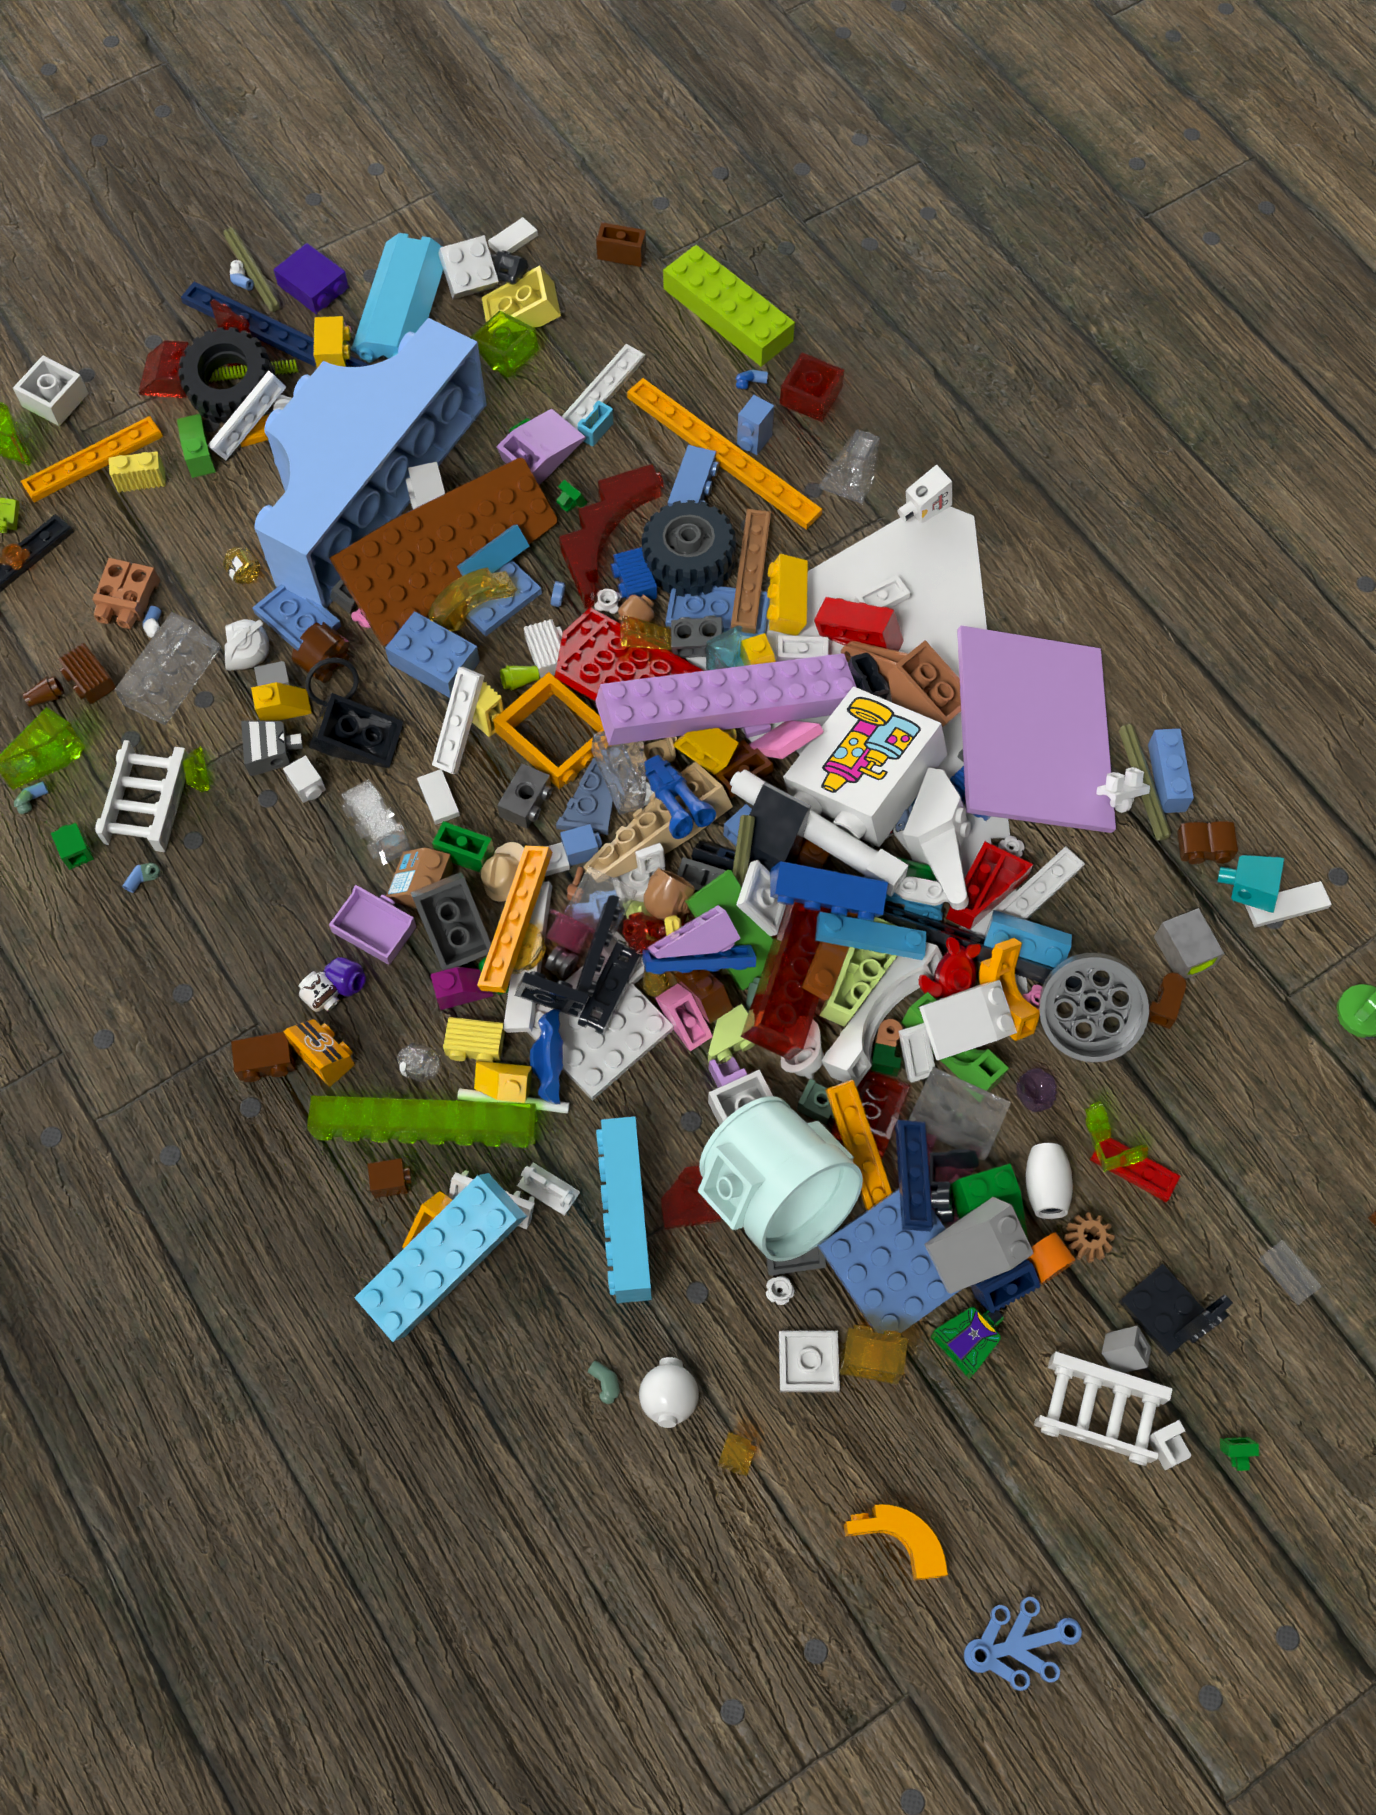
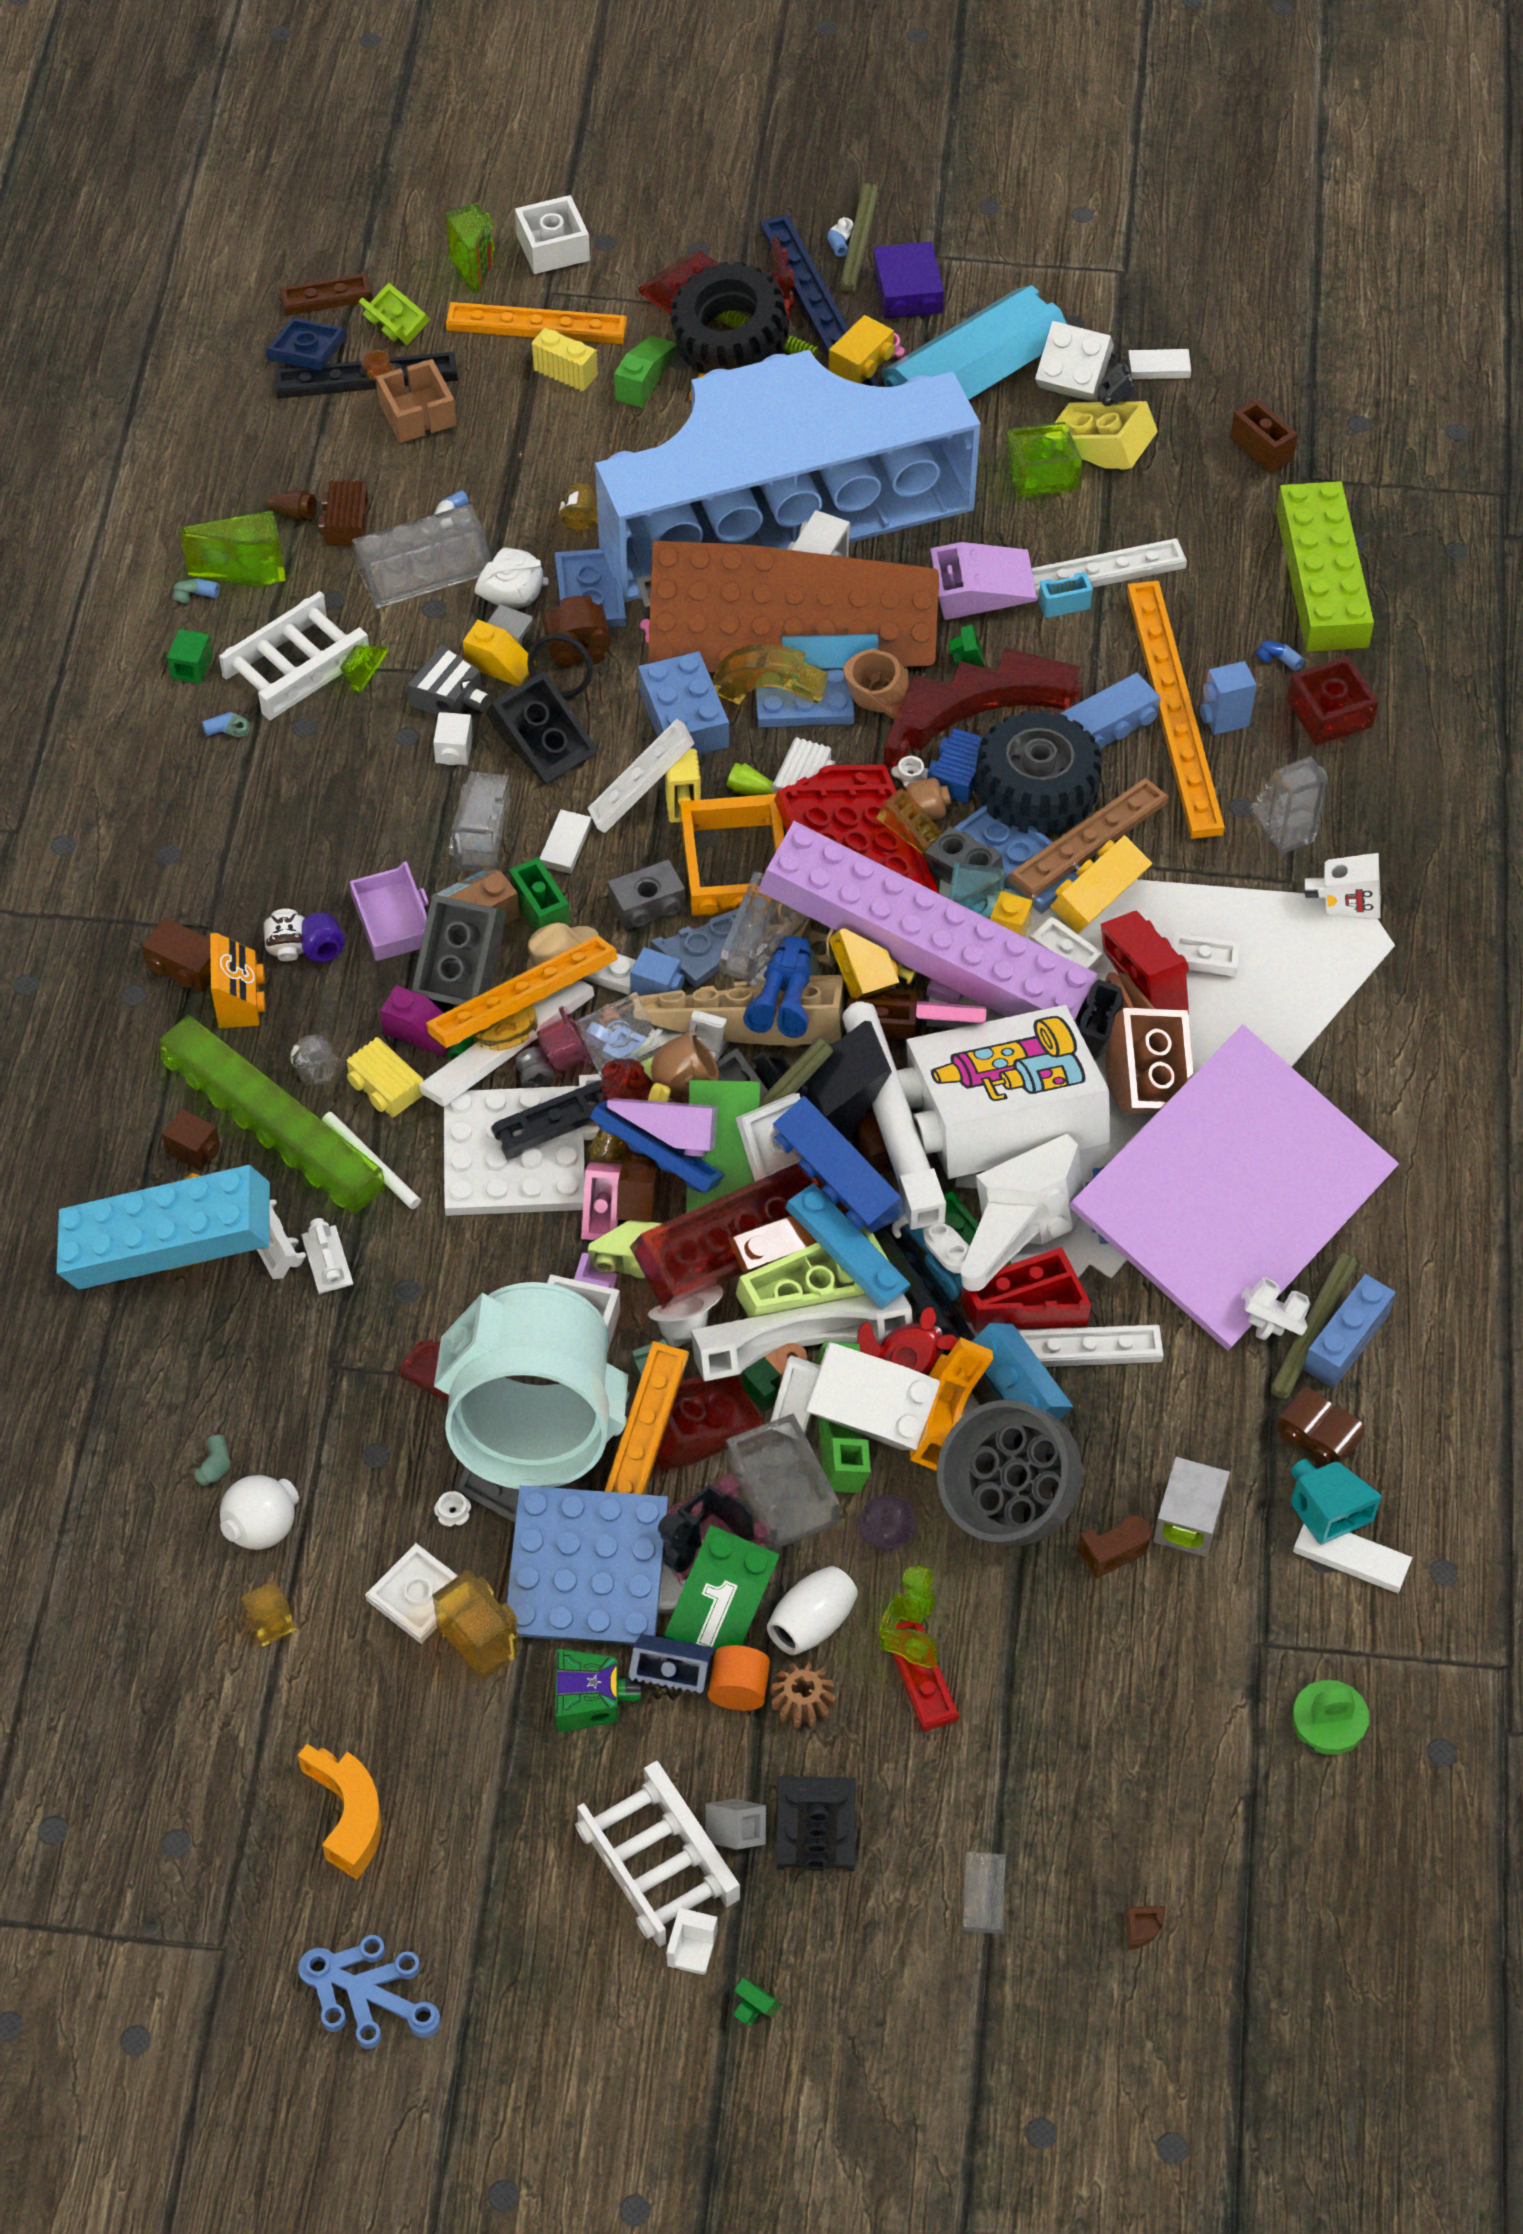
camera: 40 degrees right, 10 degrees down
(70, 567) = (423, 408): none -> medium nougat piece
(124, 592) = (448, 462): nougat hips -> none
(247, 415) = (676, 380): white tile -> none
(503, 1081) = (377, 1133): yellow slope -> none
(541, 556) = (877, 681): none -> medium nougat helmet
(547, 1057) = (434, 1136): blue piece -> none
(558, 593) = (864, 731): medium blue tile -> none
(560, 994) = (503, 1100): black bracket -> none
(624, 1202) = (372, 1322): medium azure brick -> none
(913, 1176) = (670, 1490): dark blue tile -> none
(979, 1246) = (668, 1601): light grey slope -> none
(1012, 841) = (1095, 1294): white plate -> none

